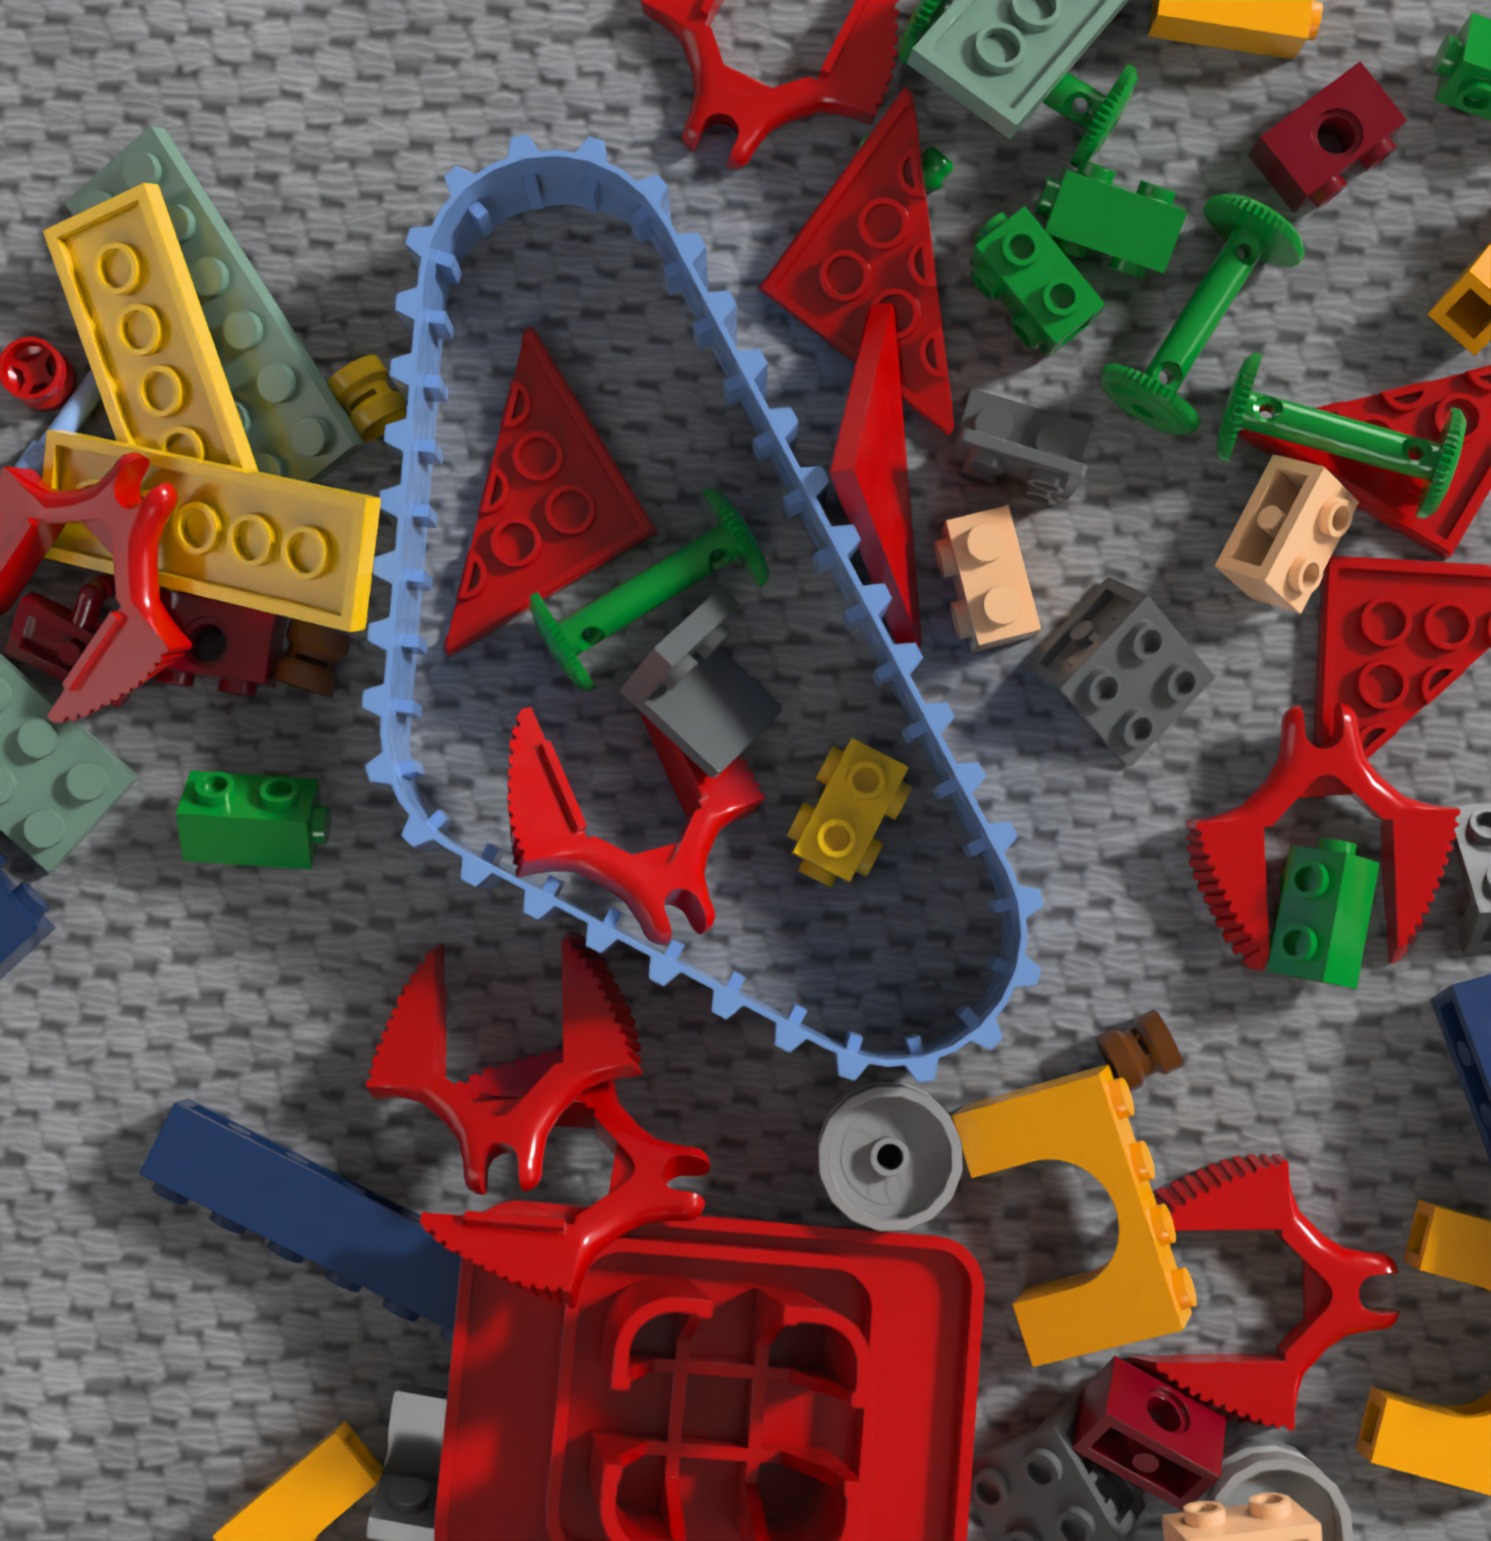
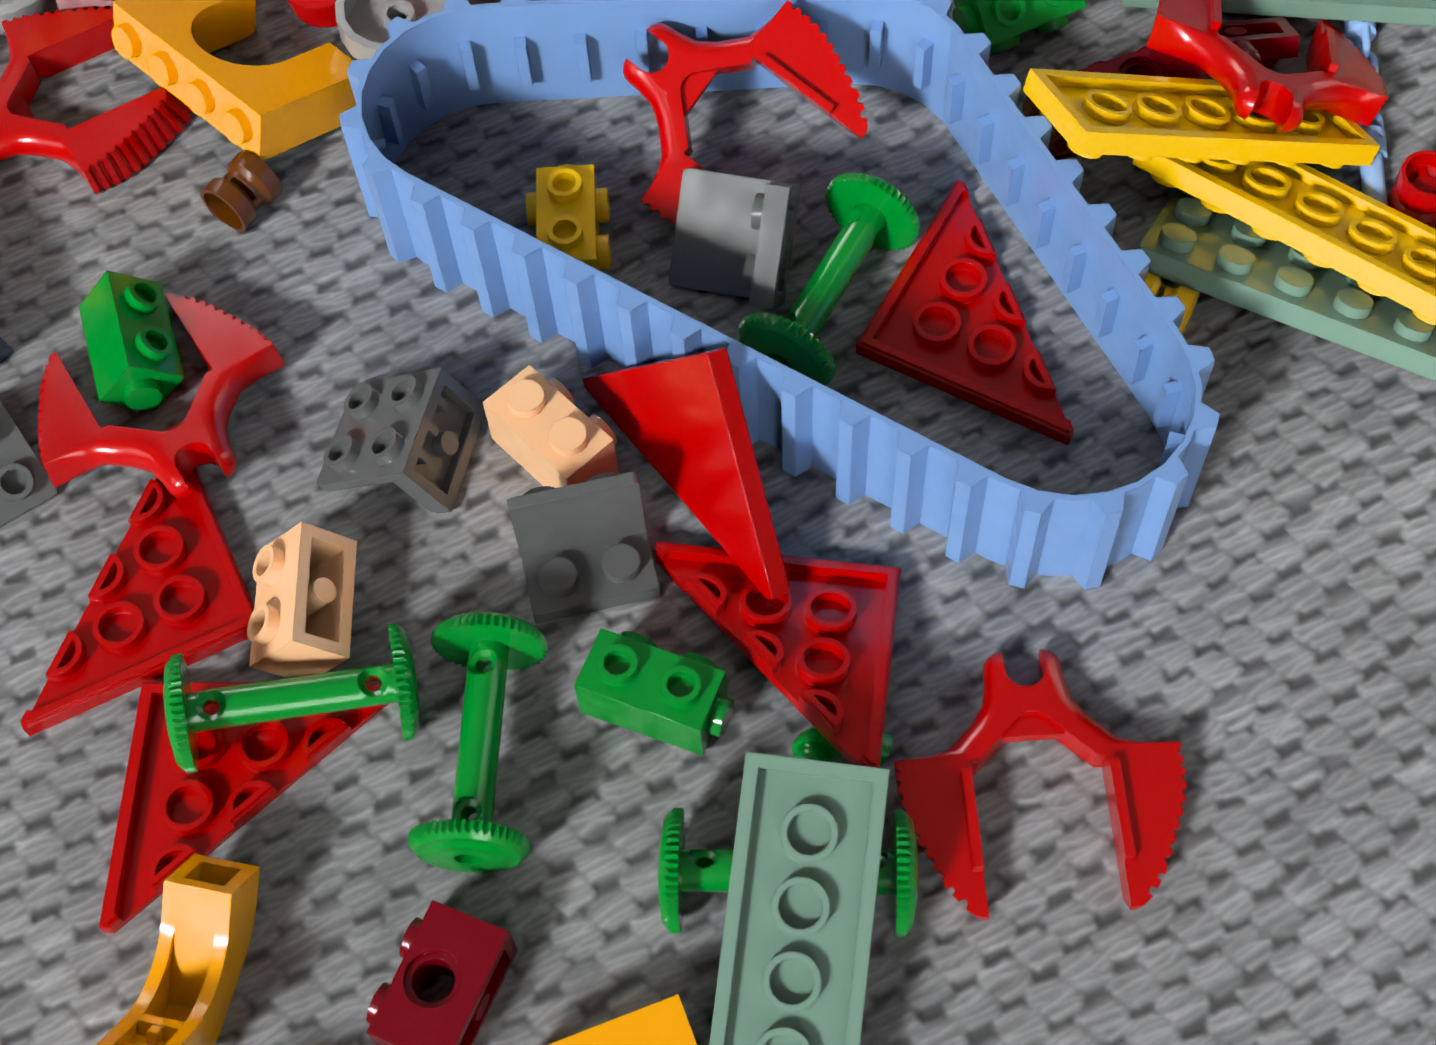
camera: 155 degrees right, 25 degrees down
(1092, 212) = (614, 785): green brick -> none

